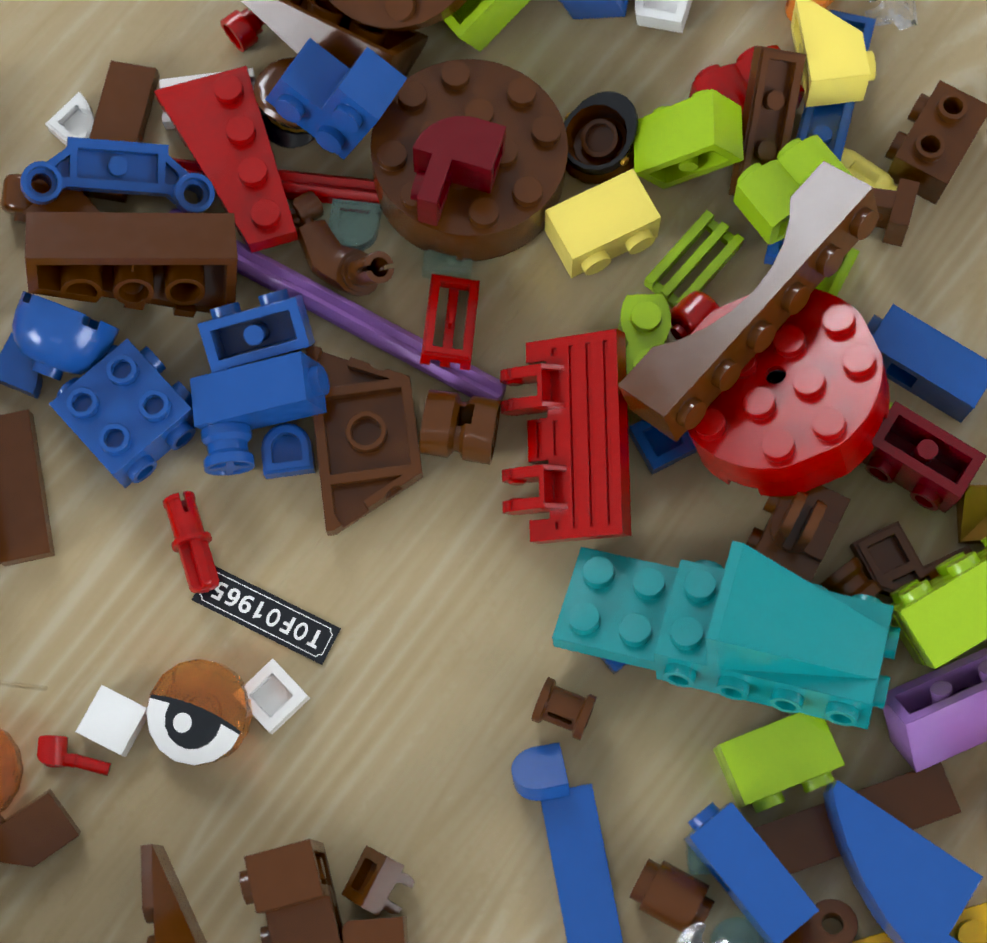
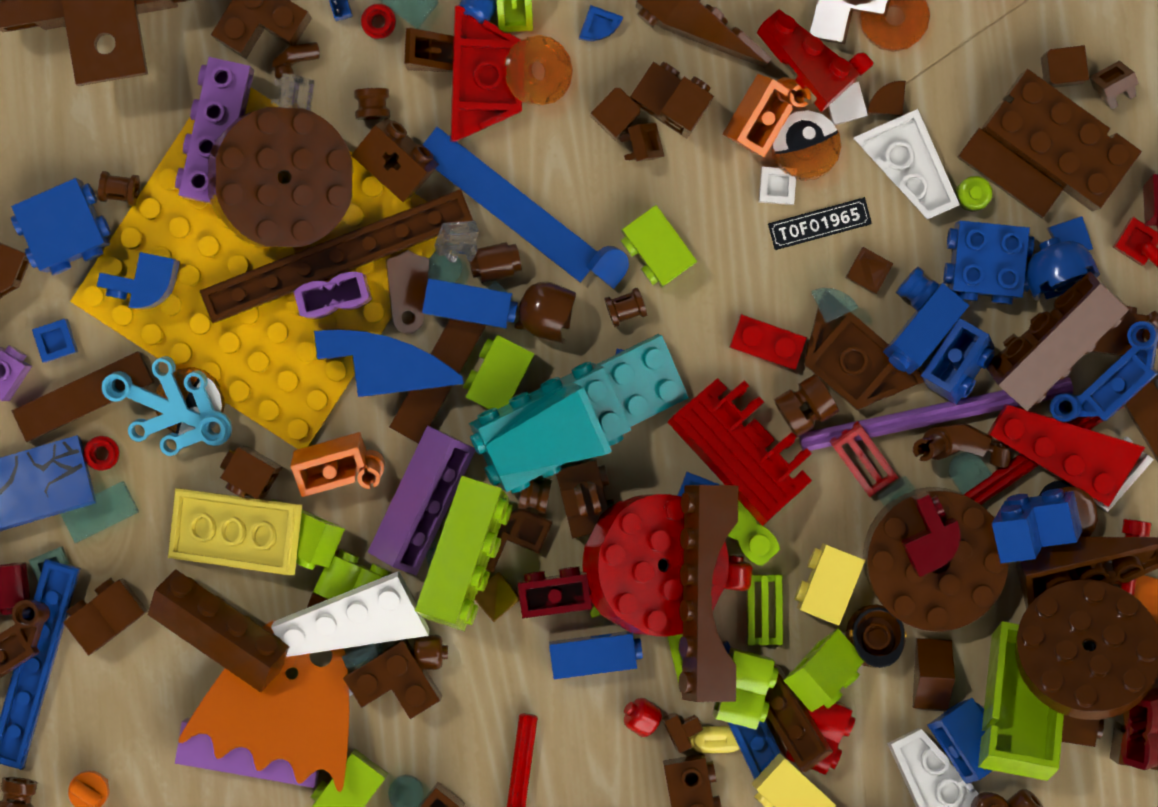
camera: 135 degrees right, 15 degrees up
(64, 682) = (888, 100): none -> reddish brown tile
(74, 498) = (974, 193): none -> lime piece
(99, 796) = (813, 61): none -> red wing
(105, 590) = (911, 162): none -> white wing
(191, 542) = (890, 224): red axle -> none
(207, 789) = (764, 112): none -> orange hinge
(260, 515) = (869, 270): none -> reddish brown tile
(287, 452) = (886, 315): blue tile -> none
(331, 508) = (833, 303): none -> clear light blue tile
(440, 533) = (767, 342): none -> red plate
(466, 744) = (657, 246): none -> lime brick
(573, 59) = (933, 674): none -> reddish brown slope
(661, 784) = (546, 311): none -> reddish brown helmet
(923, 259) = (642, 717): none -> red piece

